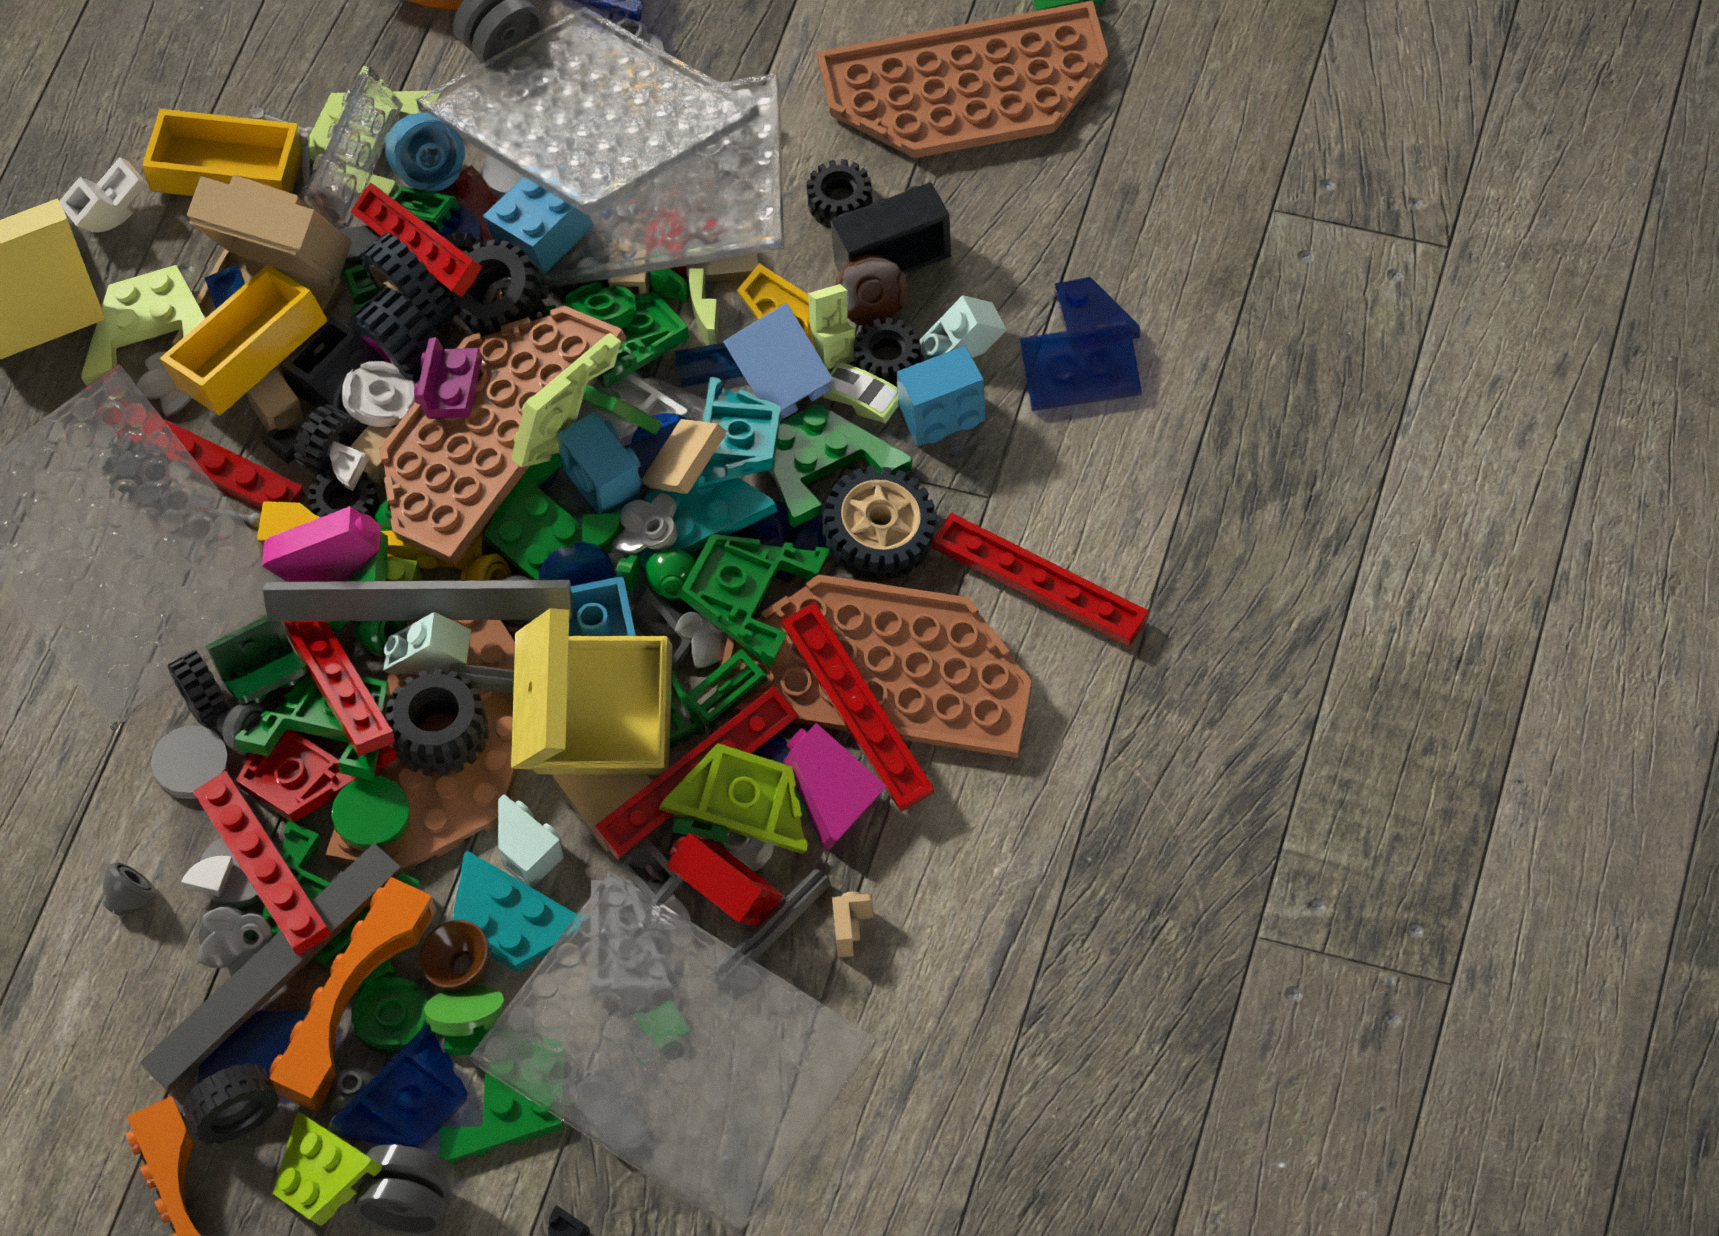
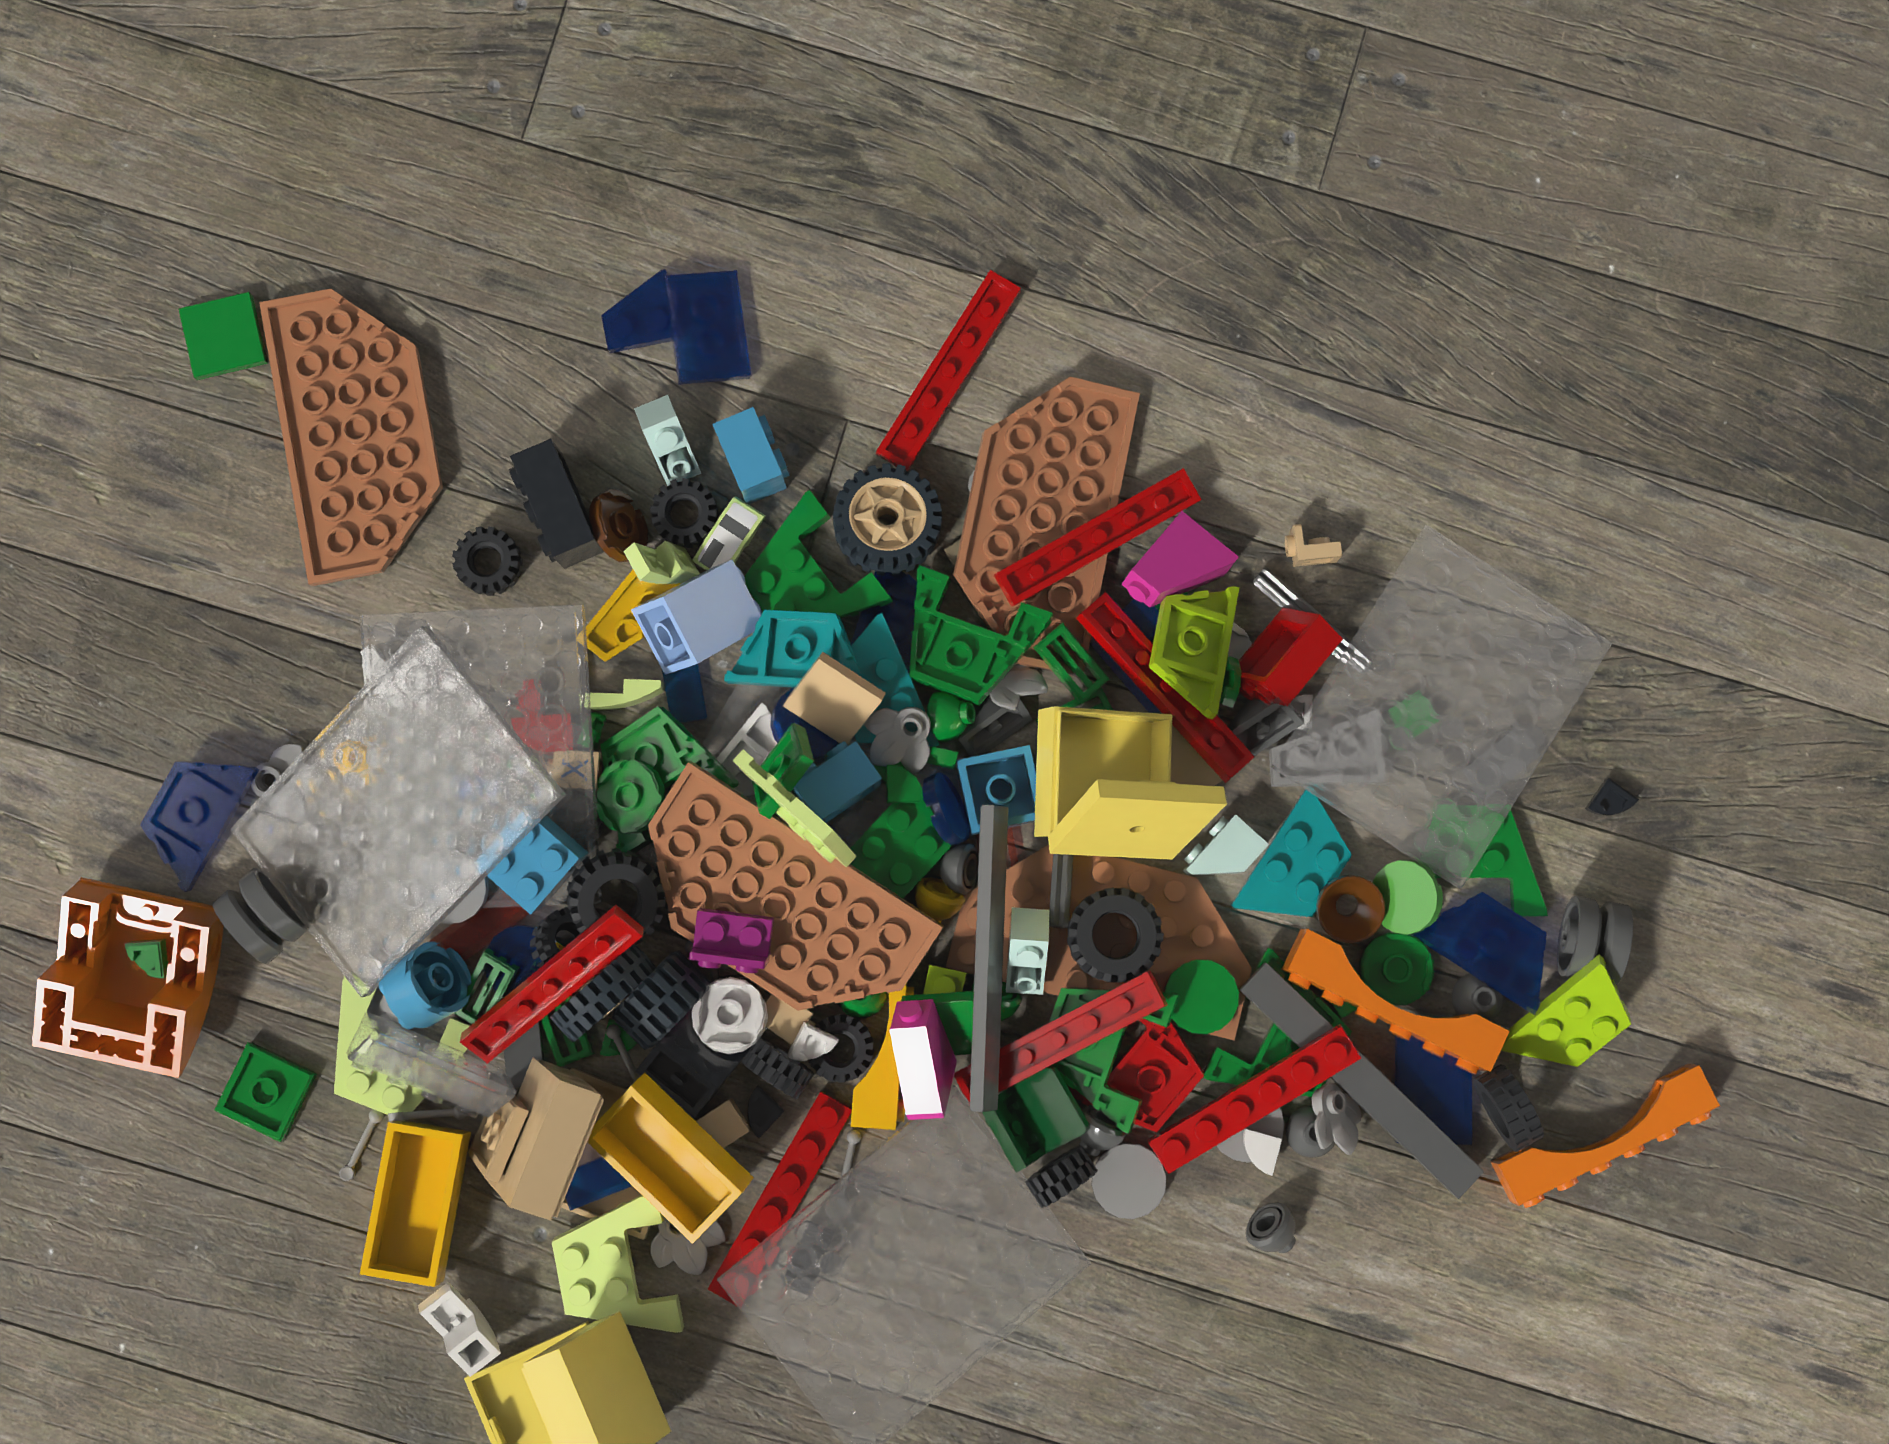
camera: 95 degrees left, 25 degrees up
(338, 48) = (265, 1091): none -> green tile

